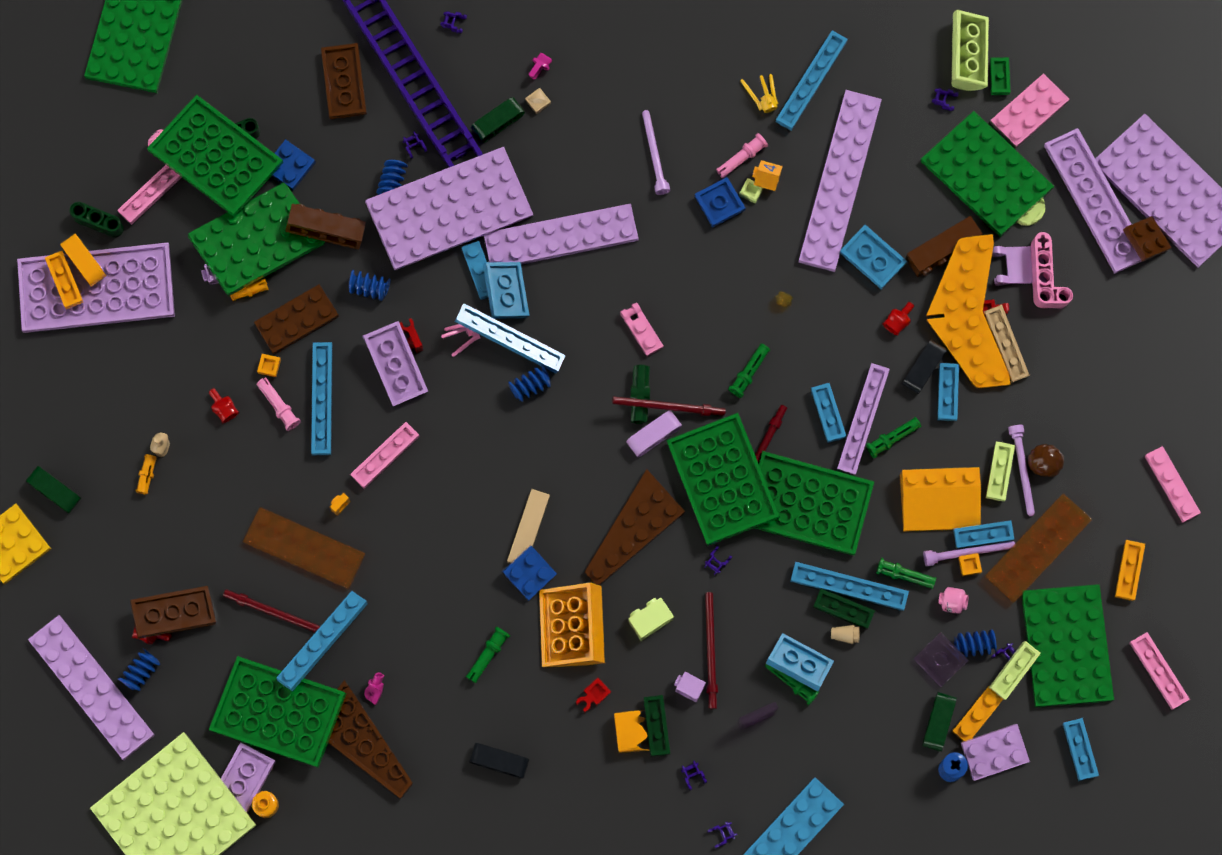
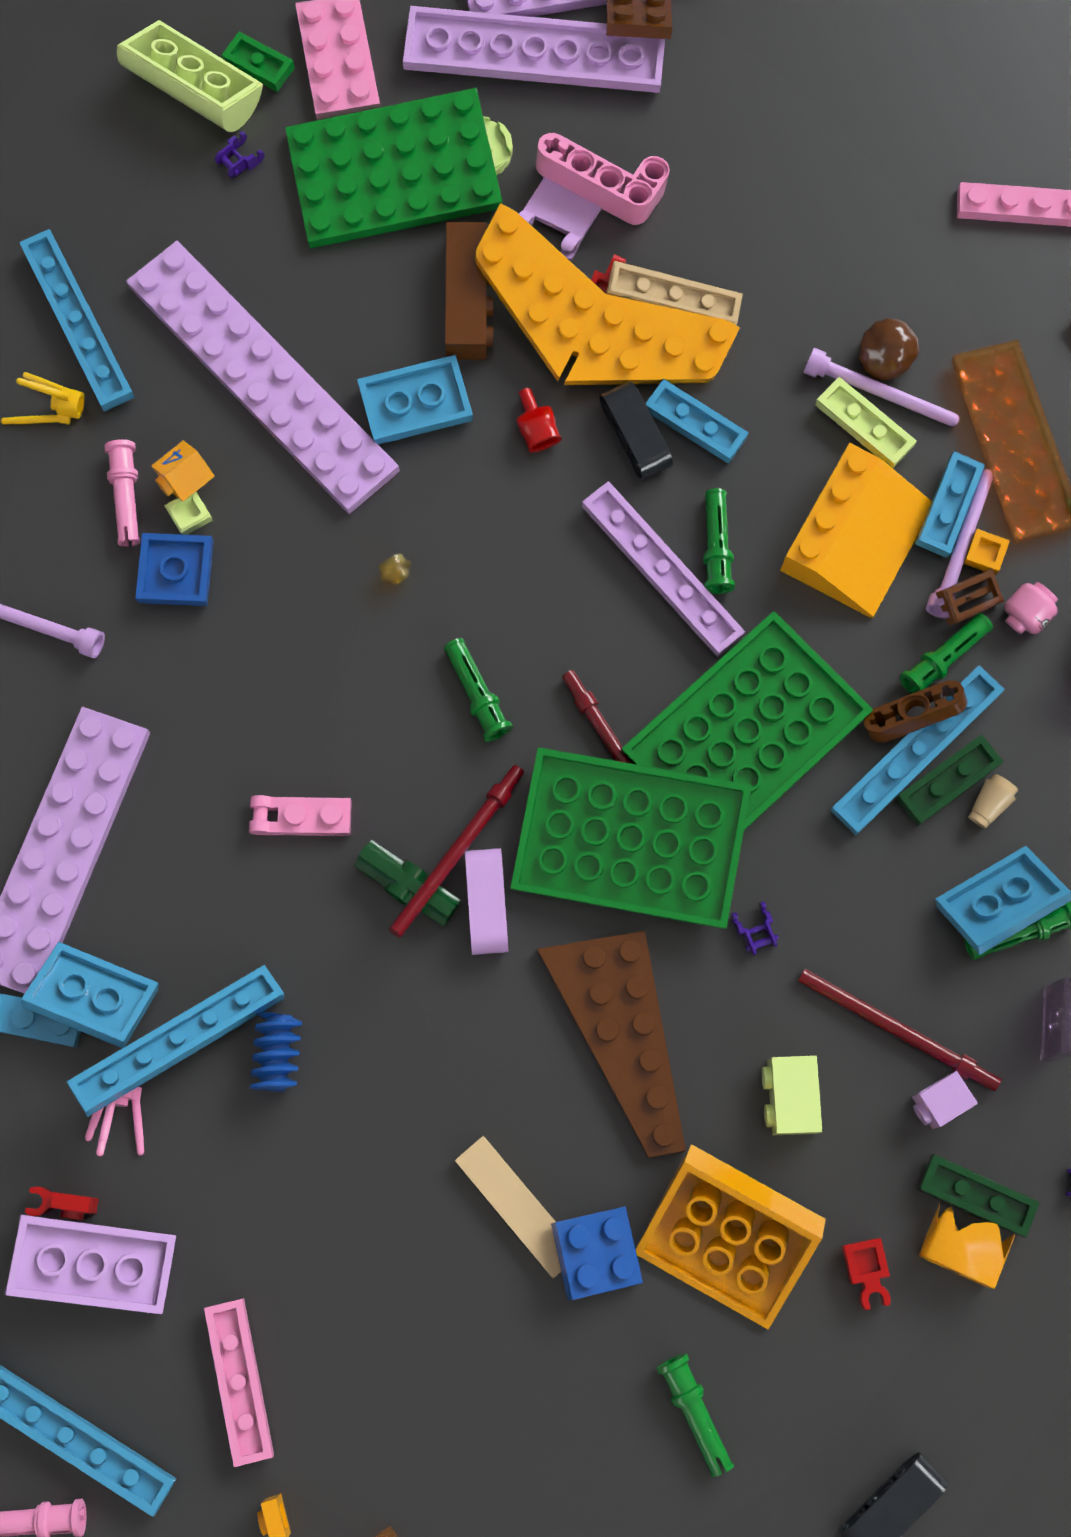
camera: 60 degrees left, 0 degrees up
(828, 412) = (619, 613): dark azure plate -> none
(876, 581) = (943, 710): none -> reddish brown beam
(928, 560) = (951, 604): none -> reddish brown tile

